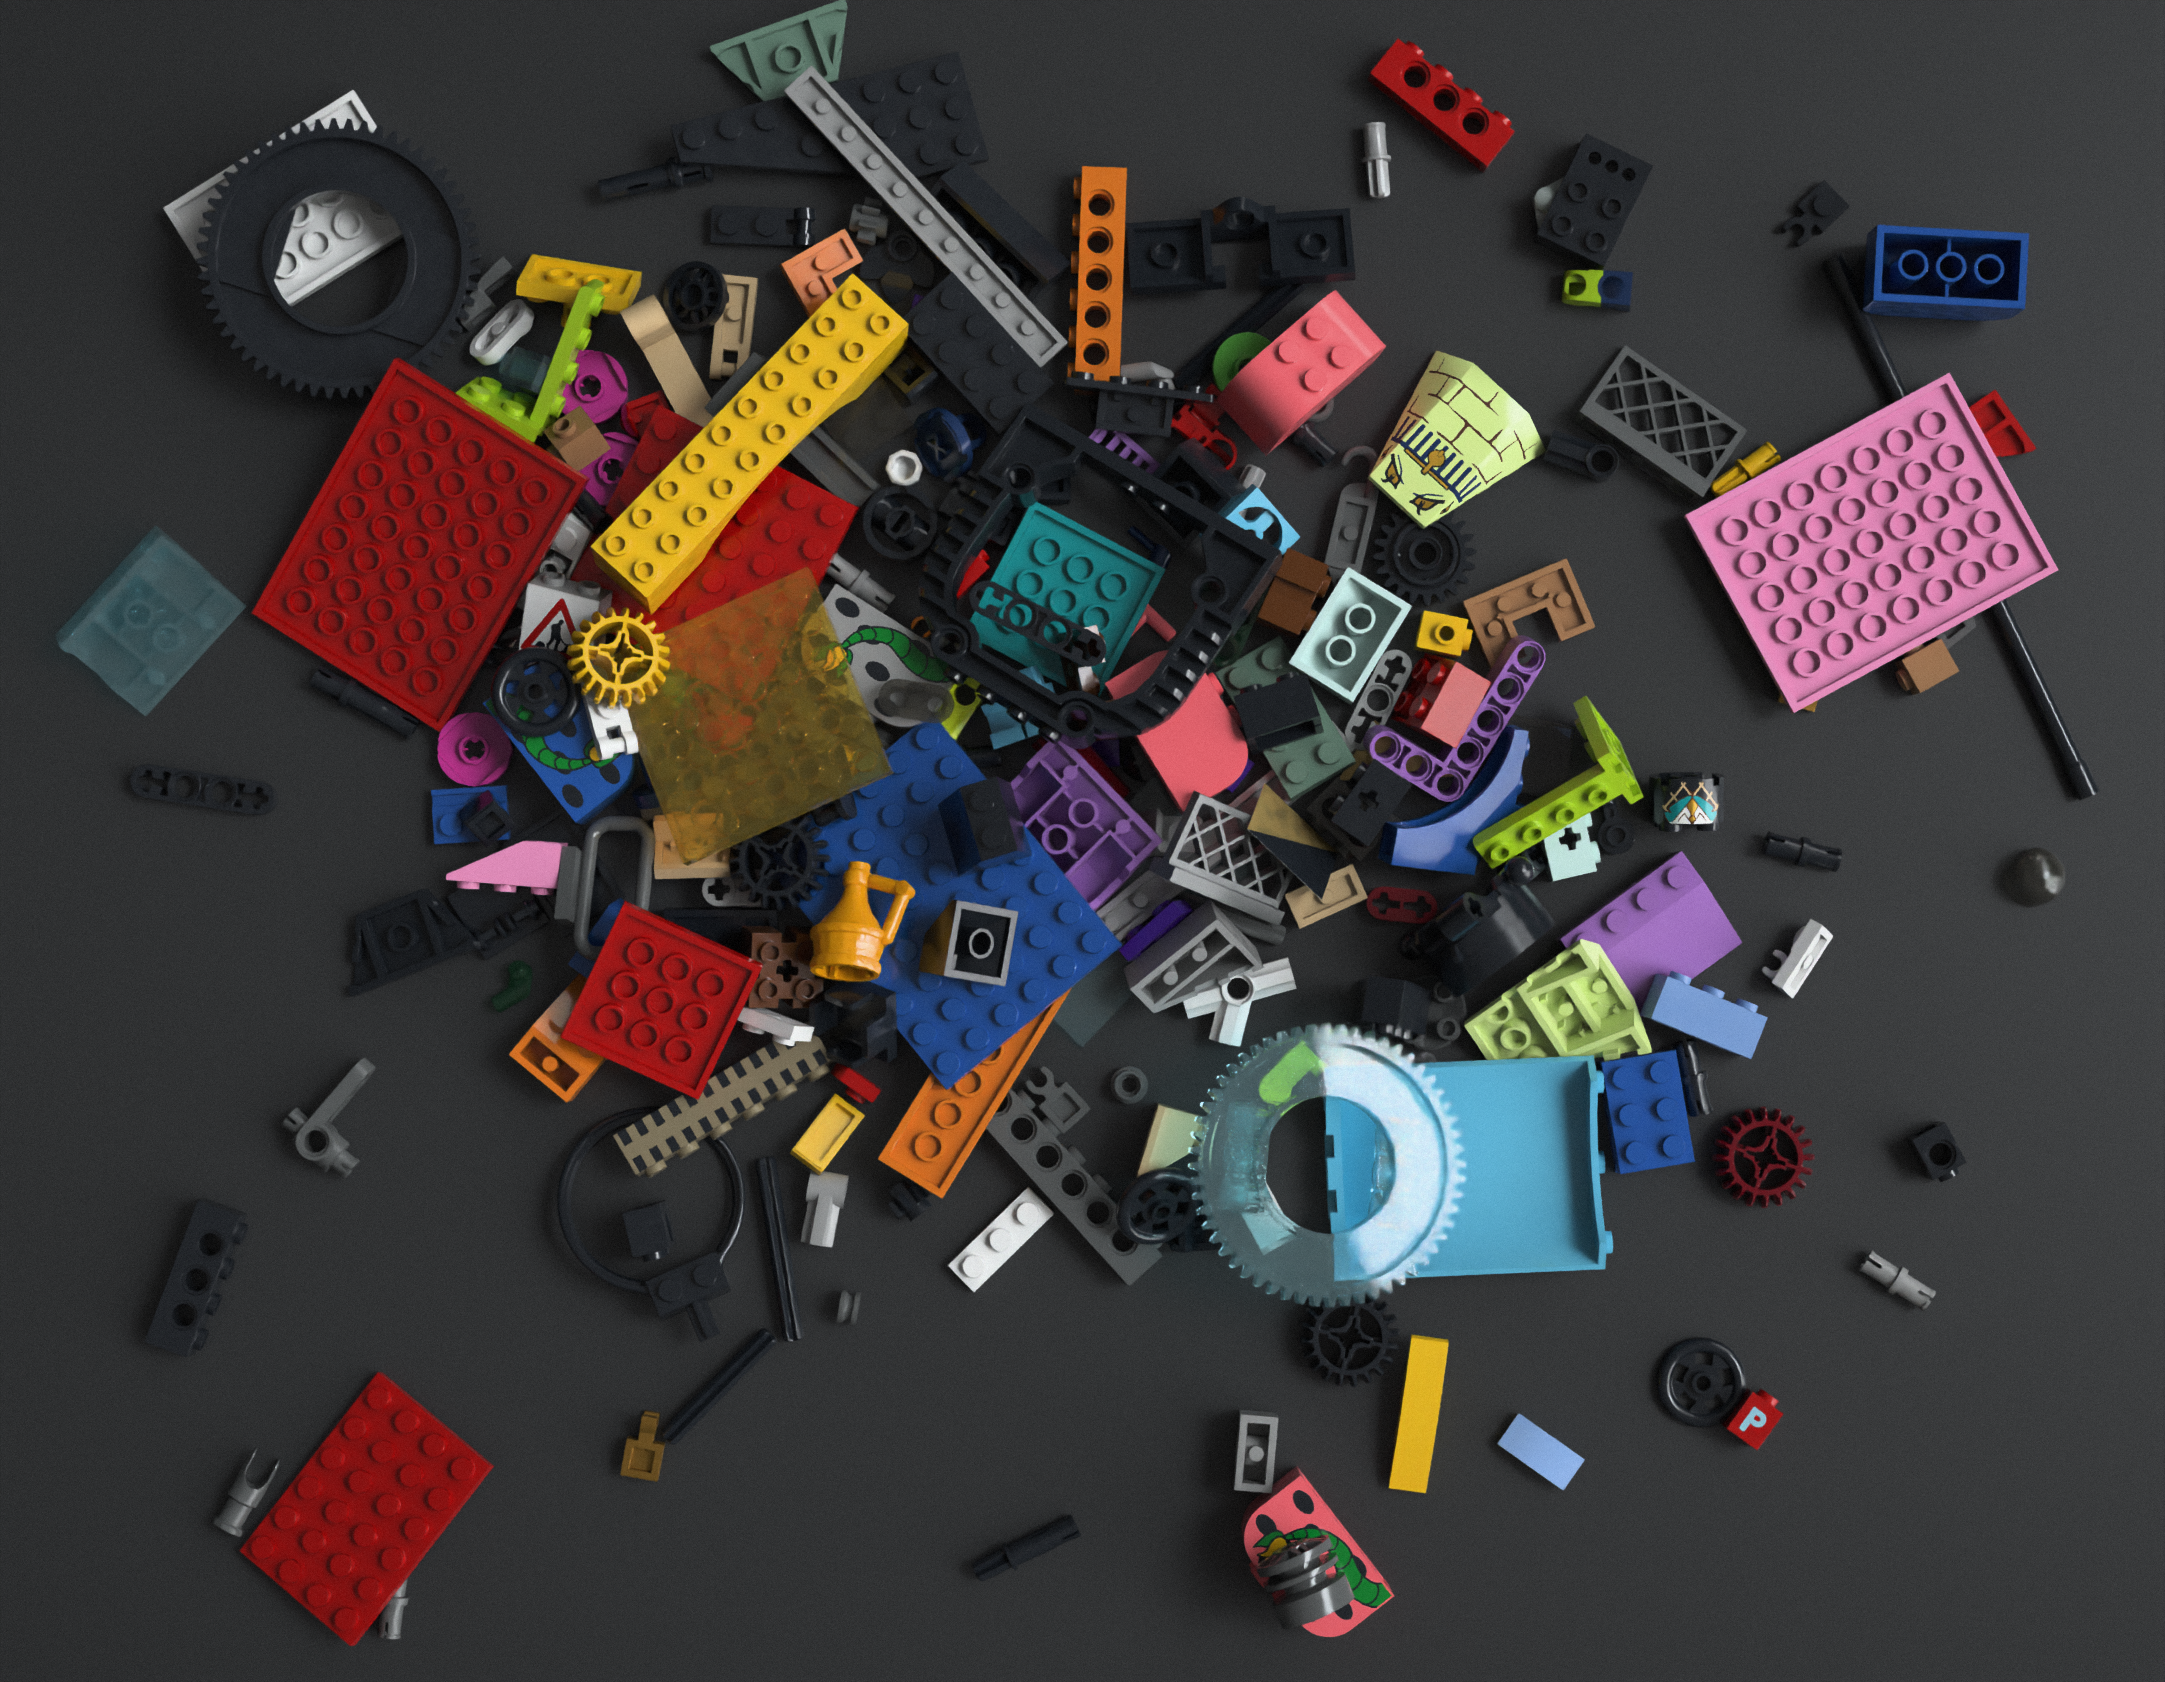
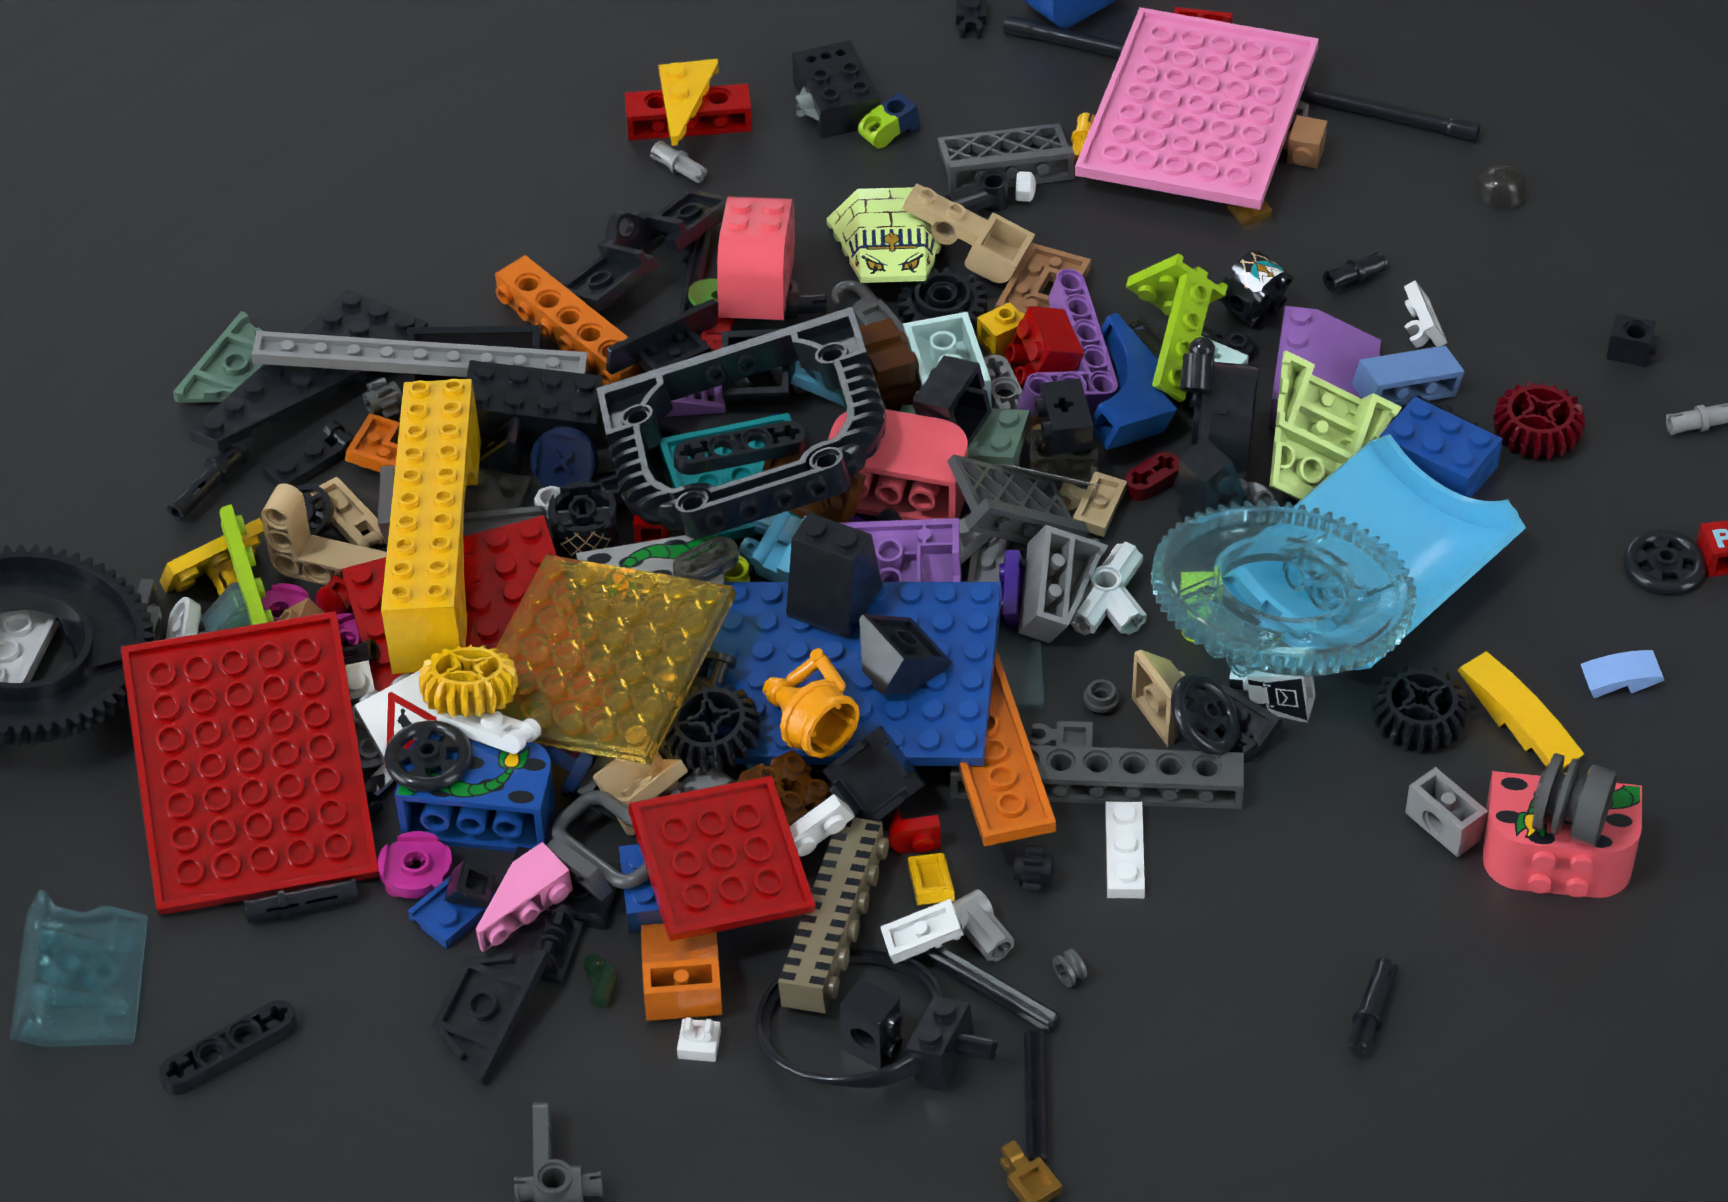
camera: 45 degrees left, 40 degrees down
(535, 1106) = (699, 1040): none -> white tile
(761, 1187) = (922, 931): none -> white plate
(1449, 87) = (683, 91): none -> yellow wing
(1530, 533) = (995, 242): none -> tan plate
(1633, 483) = (1025, 186): none -> white tile

